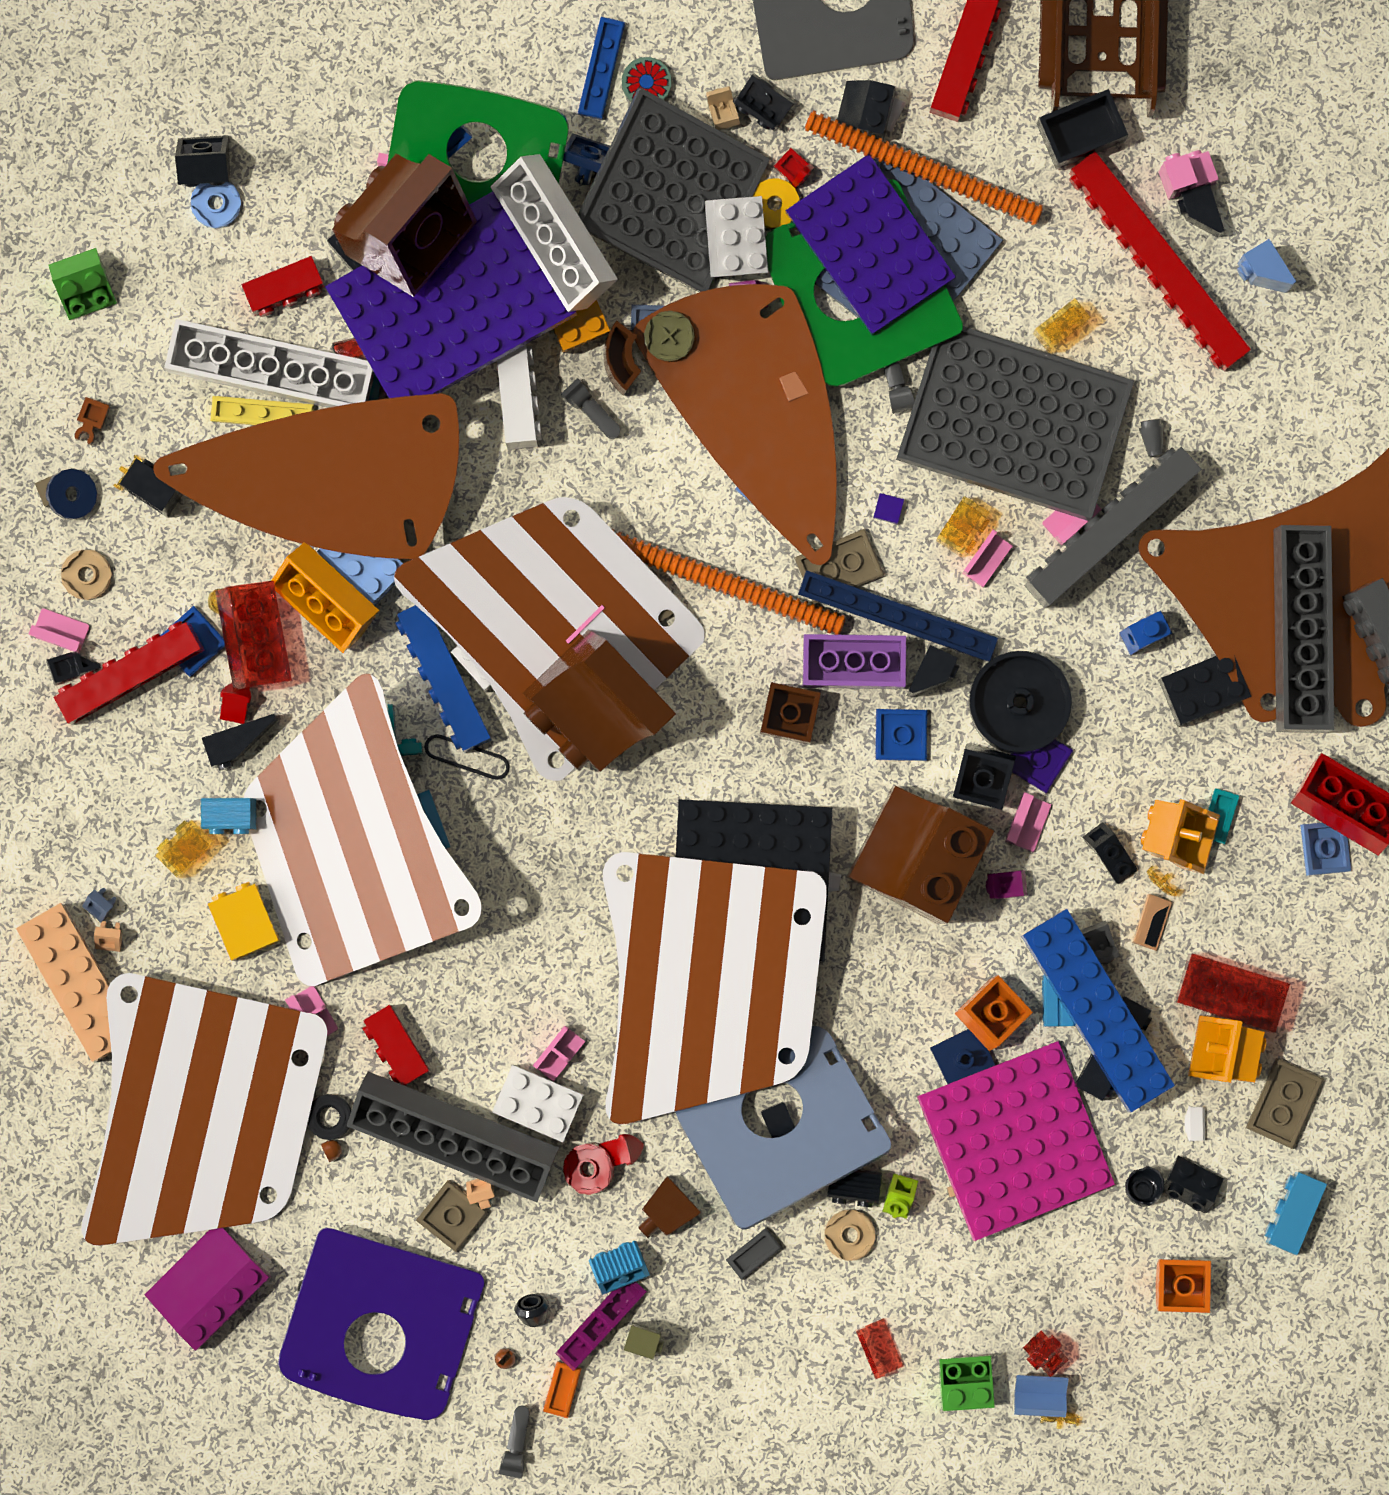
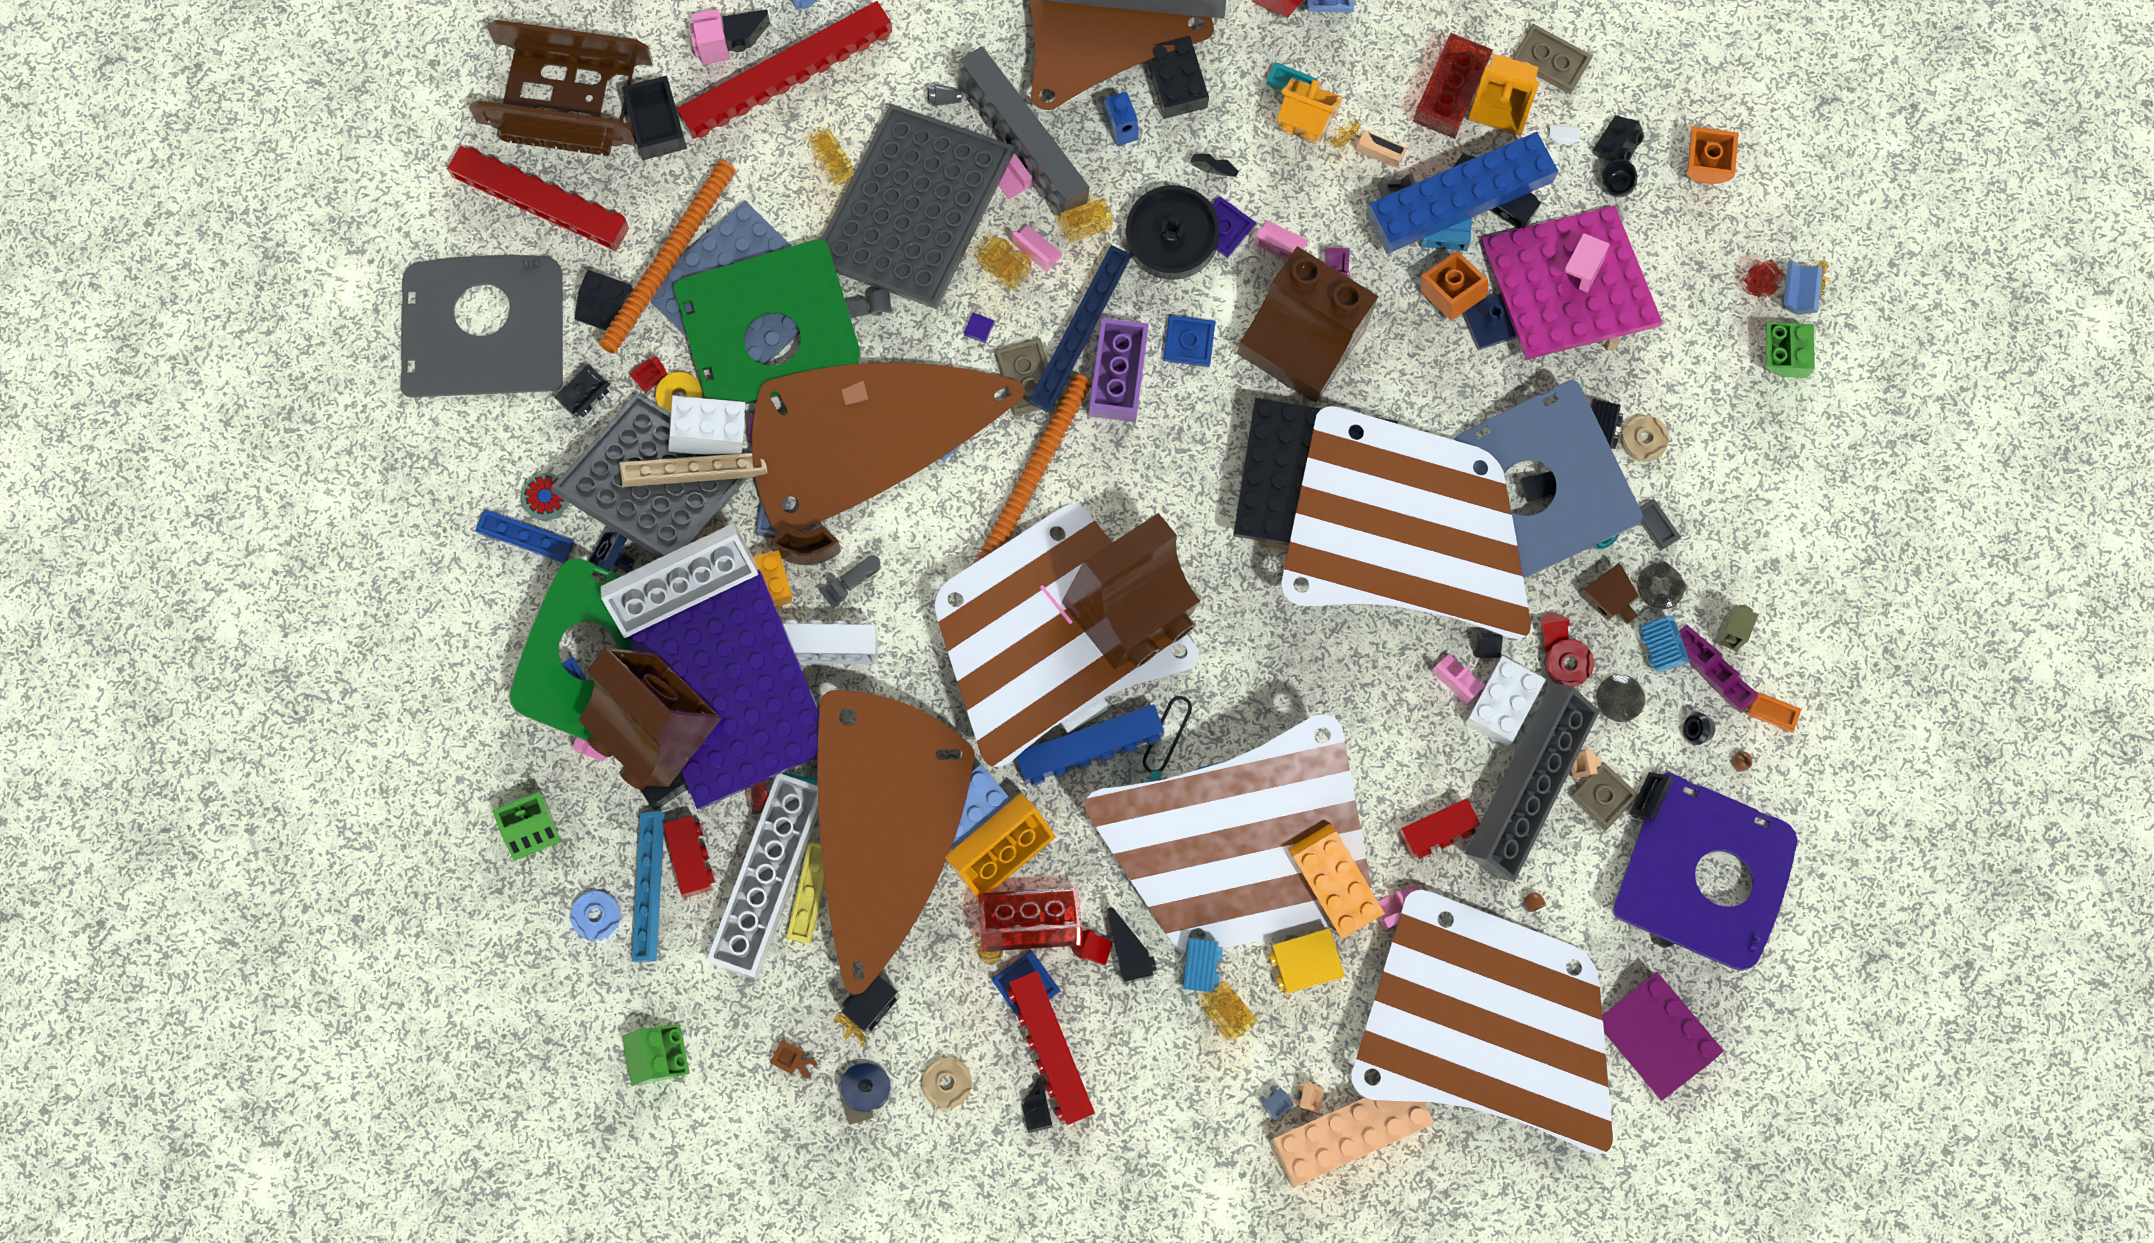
camera: 85 degrees left, 10 degrees down
(60, 630) = (999, 1114): bright pink panel -> none
(202, 160) = (552, 920): black slope -> none
(248, 250) = (648, 887): none -> dark azure plate
(295, 120) = (526, 826): none -> bright green slope
(318, 1128) = (1507, 887): black tyre -> none
(324, 940) = (1336, 881): none -> light orange brick
(453, 1265) = (1654, 797): none -> black tile
(513, 1462) = (1840, 763): dark grey piece -> none
(558, 1226) = (1620, 698): none -> clear smoke dish
(597, 1082) = (1488, 645): none -> black tile
(669, 336) = (791, 499): olive tile -> none
(684, 1261) = (1660, 586): none -> clear smoke dish
(685, 226) = (689, 469): none -> tan tile
(722, 108) = (582, 429): tan bracket -> none
(790, 713) = (1160, 431): reddish brown brick -> none
(870, 244) = (732, 309): dark purple plate -> none
(879, 1348) = (1751, 424): clear red panel -> none
(900, 1196) = (1615, 386): lime brick -> none
(934, 671) = (1135, 300): black slope -> none
(984, 776) = (1237, 268): black brick -> none
(1022, 608) = (1086, 220): none -> clear yellow brick
(1033, 1152) = (1587, 260): none -> bright pink panel
(1105, 745) = (1209, 164): none -> black slope
(1110, 852) = (1312, 172): black bracket -> none
(1295, 1212) = (1650, 58): dark azure brick -> none

